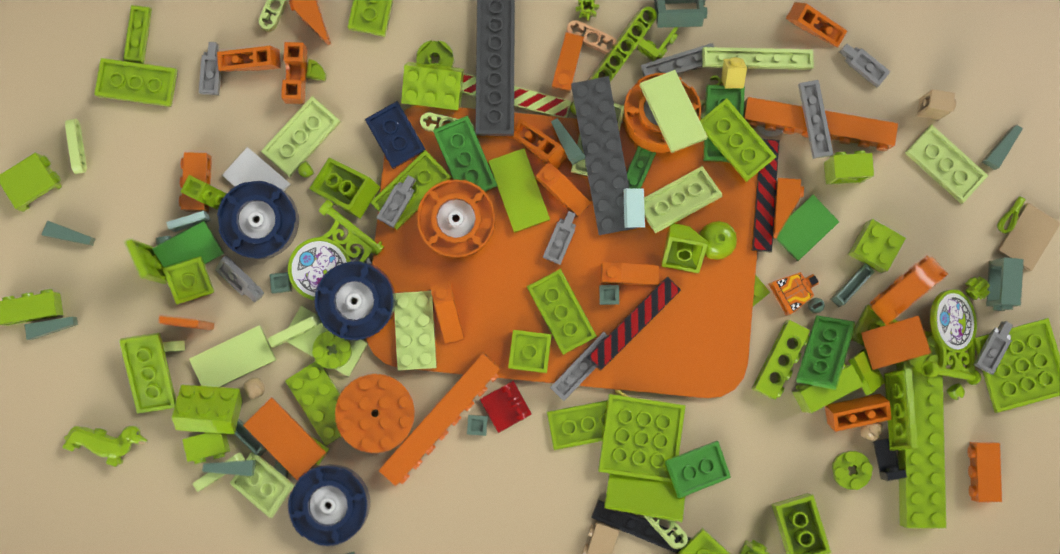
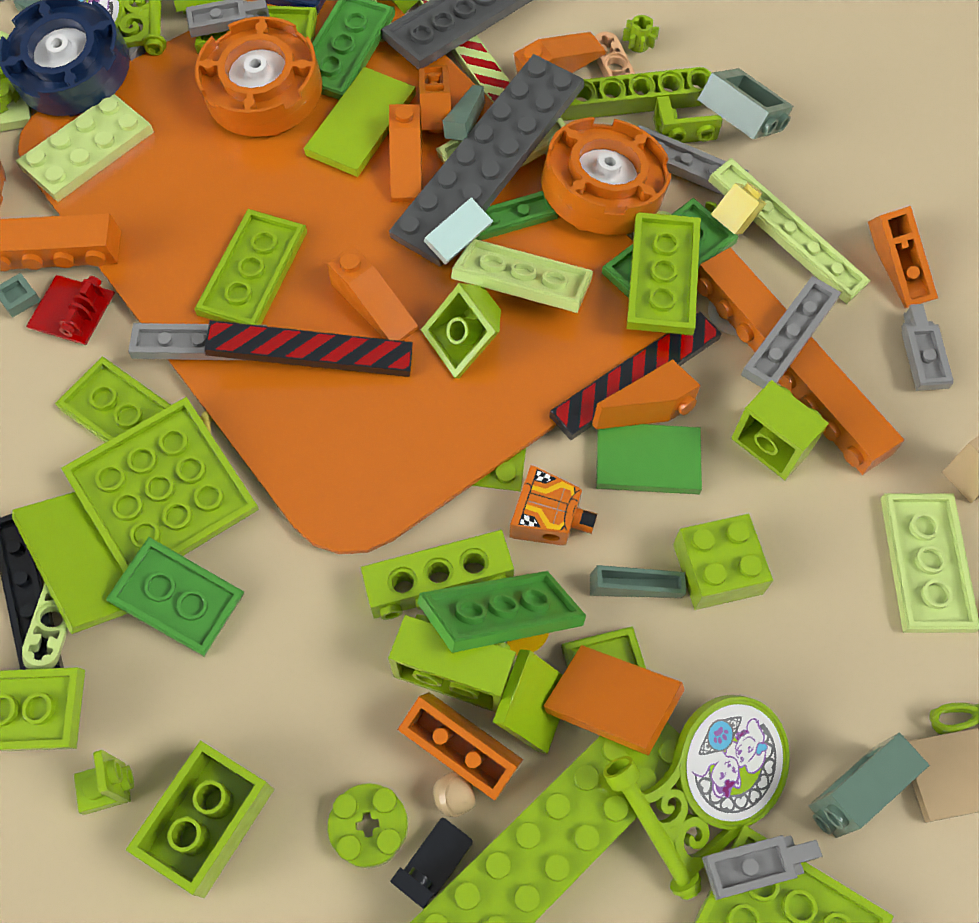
camera: 50 degrees right, 20 degrees down
(447, 312) = (139, 150): orange slope -> none
(529, 351) = (164, 271): lime plate -> none
(560, 239) = (344, 197): light grey hinge -> none
(608, 294) = (322, 298): sand green plate -> none
(673, 111) = (617, 170): yellowish green tile -> none
(720, 238) = (519, 361): lime cylinder -> none
(814, 301) = (560, 566): sand green hinge -> none
(903, 420) = (520, 802): lime tile -> none
(908, 289) = (706, 634): orange piece -> none
(955, 391) = (637, 878): lime hinge -> none
(977, 288) = (817, 758): lime gear -> none

